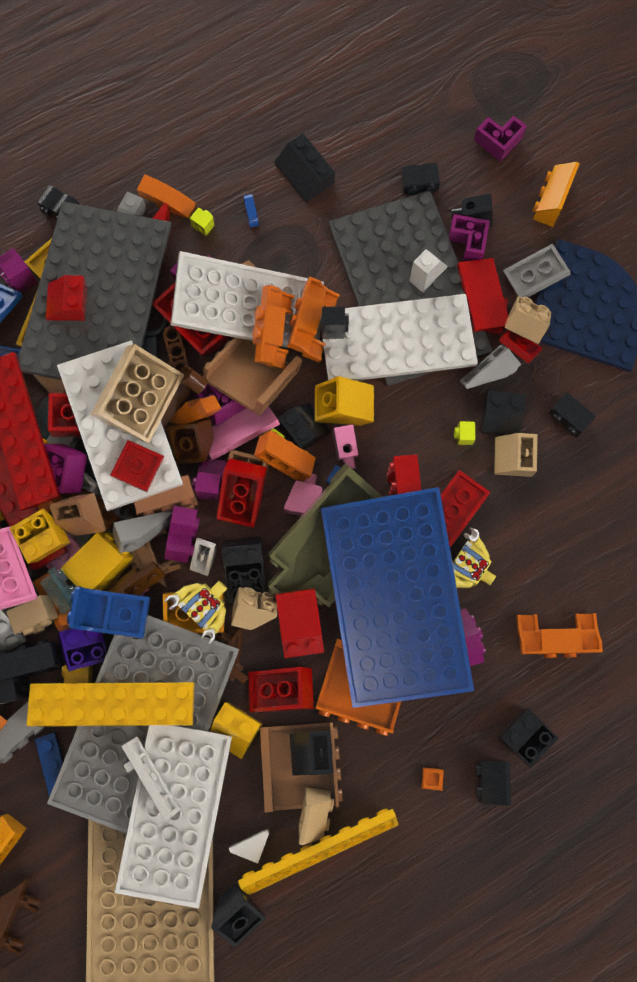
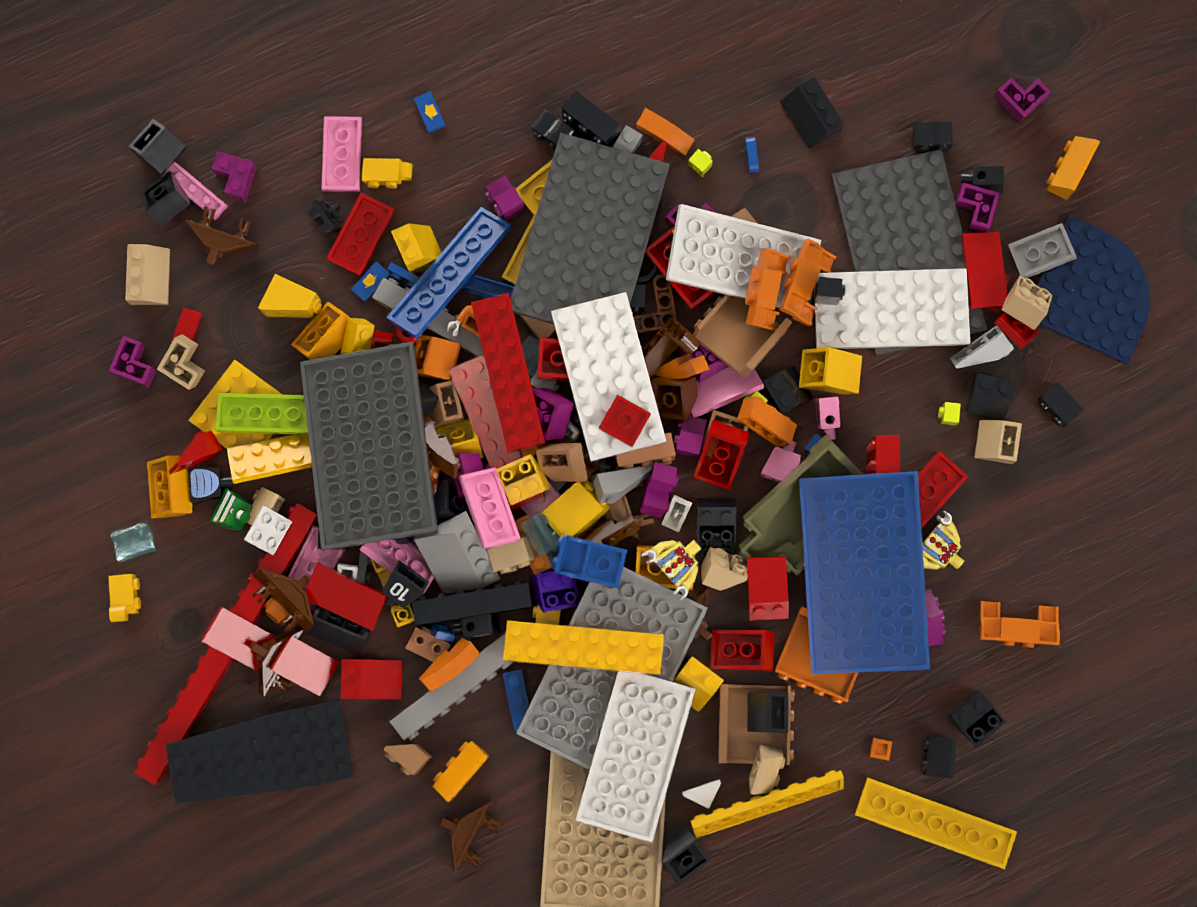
camera: 10 degrees right, 5 degrees up
(67, 299) = (562, 242): red slope -> none
(91, 188) = (590, 120): none -> black brick
(137, 393) = (630, 349): tan slope -> none
(150, 778) = (615, 713): white hinge -> none
(426, 270) = (929, 240): white slope -> none
(498, 853) = (935, 823): none -> yellow plate

